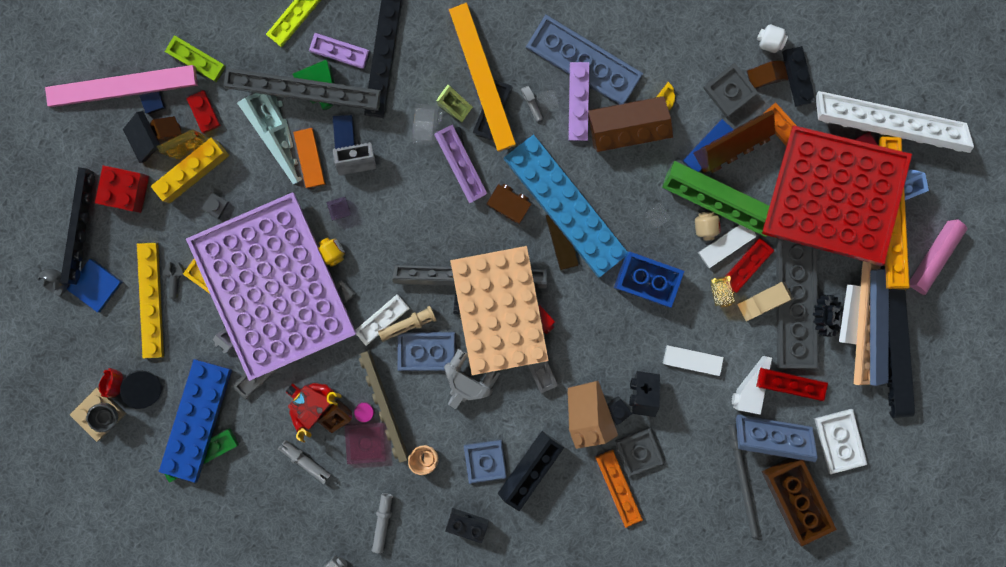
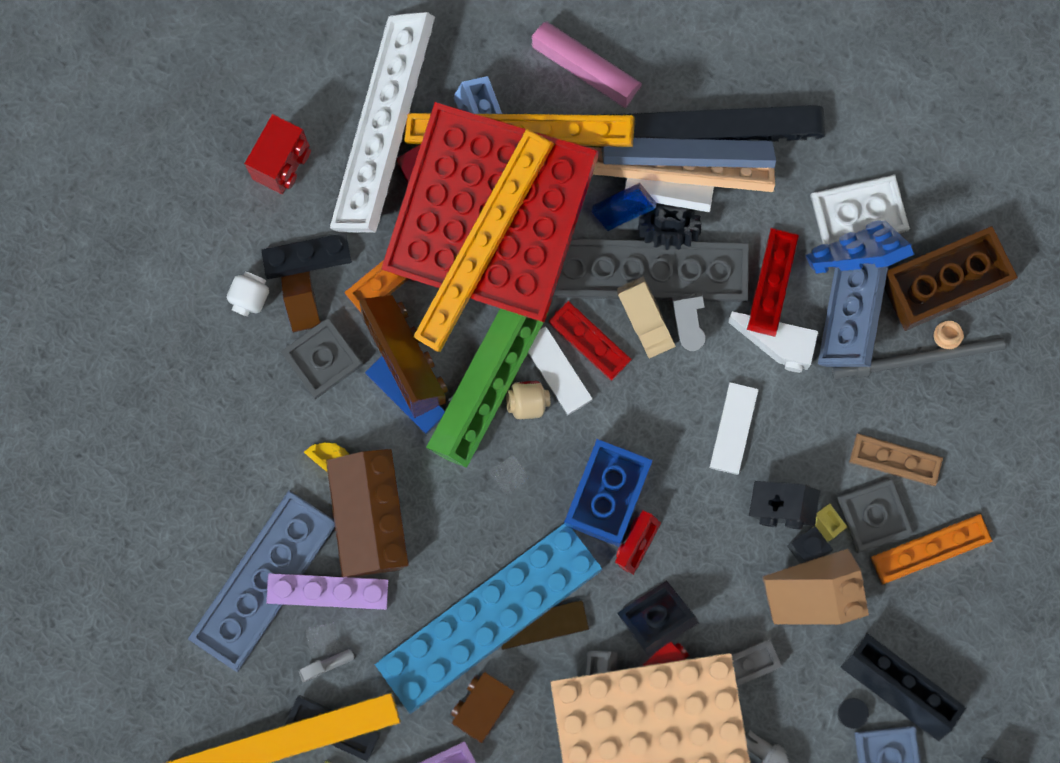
camera: 90 degrees left, 10 degrees down
(513, 438) = (853, 713): none -> black tile
(569, 313) = (657, 618): none -> black plate
(612, 297) = (633, 550): none -> red plate
(633, 423) = (829, 523): none -> light yellow plate
(676, 465) = (896, 460): none -> medium nougat tile
(723, 291) = (629, 380): clear yellow brick -> none
(759, 329) = (688, 327): none -> light grey leg
(760, 500) = (948, 335): none -> light nougat plate
(818, 191) = (483, 240): none -> light orange tile
(821, 453) = (874, 245): none -> blue plate
(840, 284) = (623, 206): none -> clear blue tile
(869, 52) = (278, 154): none -> red brick

